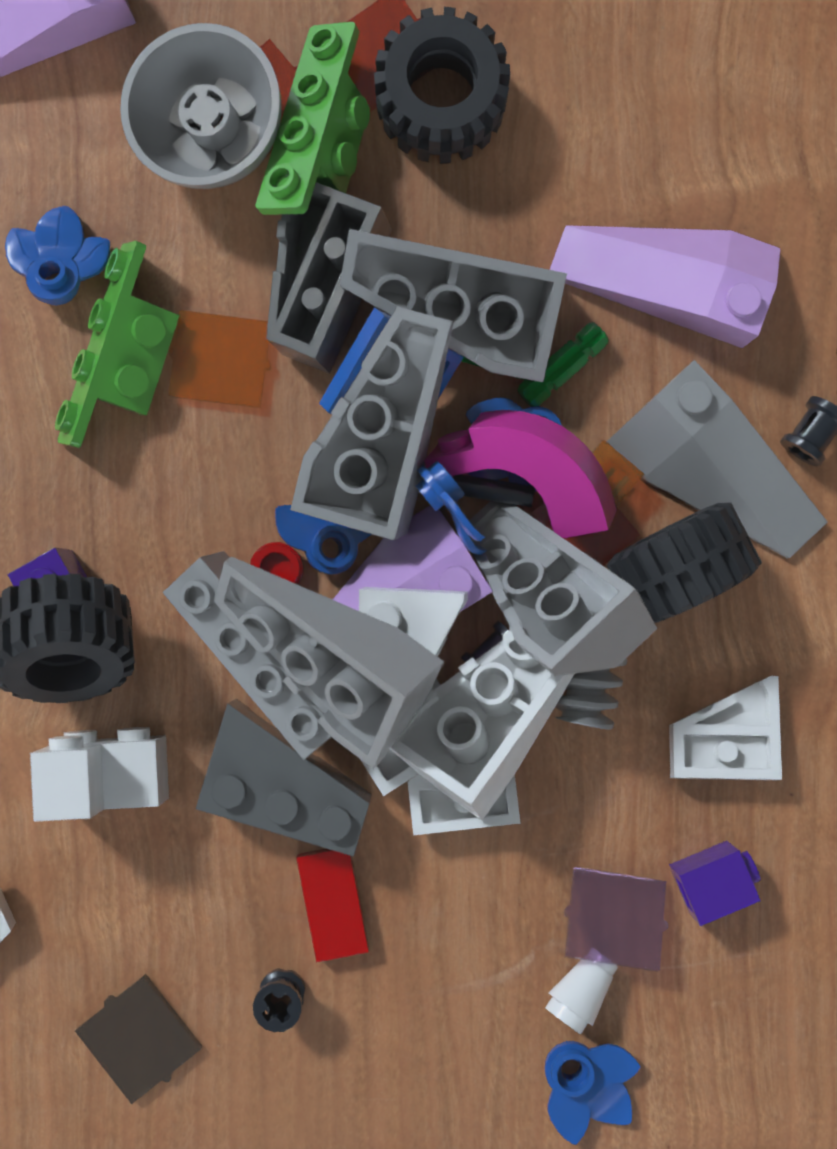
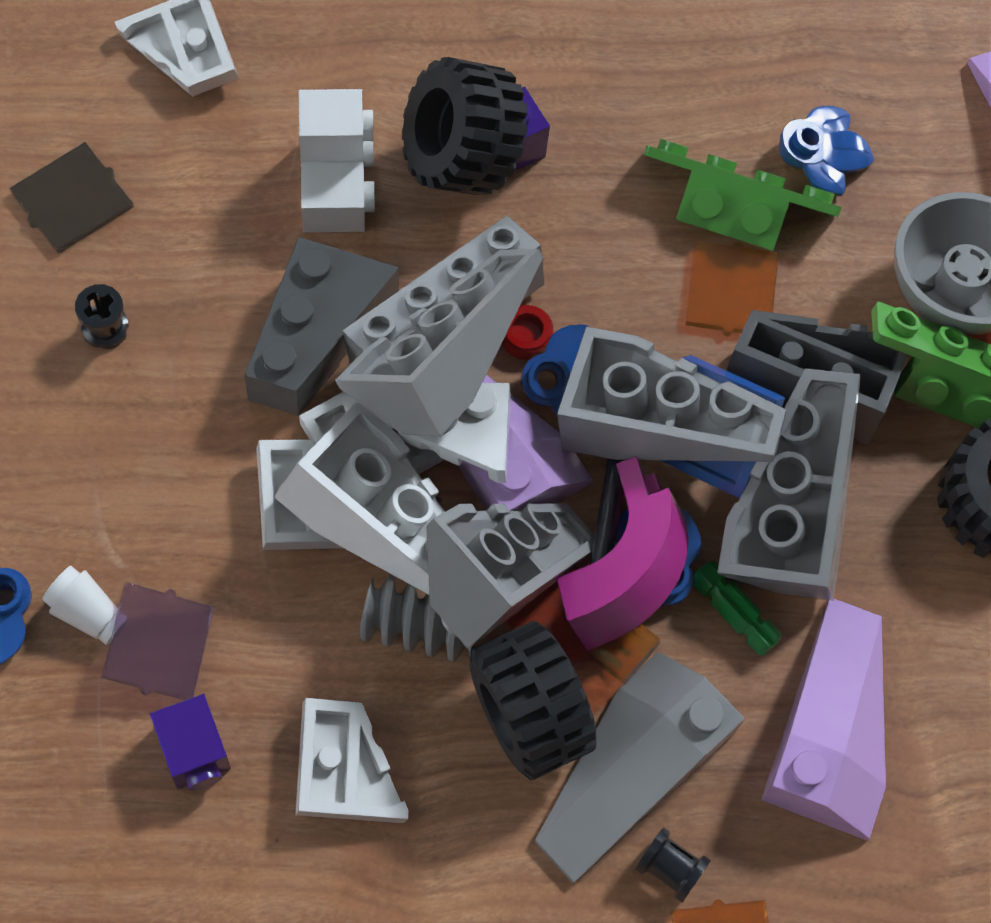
camera: 85 degrees right, 20 degrees down
(332, 904) = (191, 372): red tile -> none
(442, 490) = (602, 467): blue plate -> none

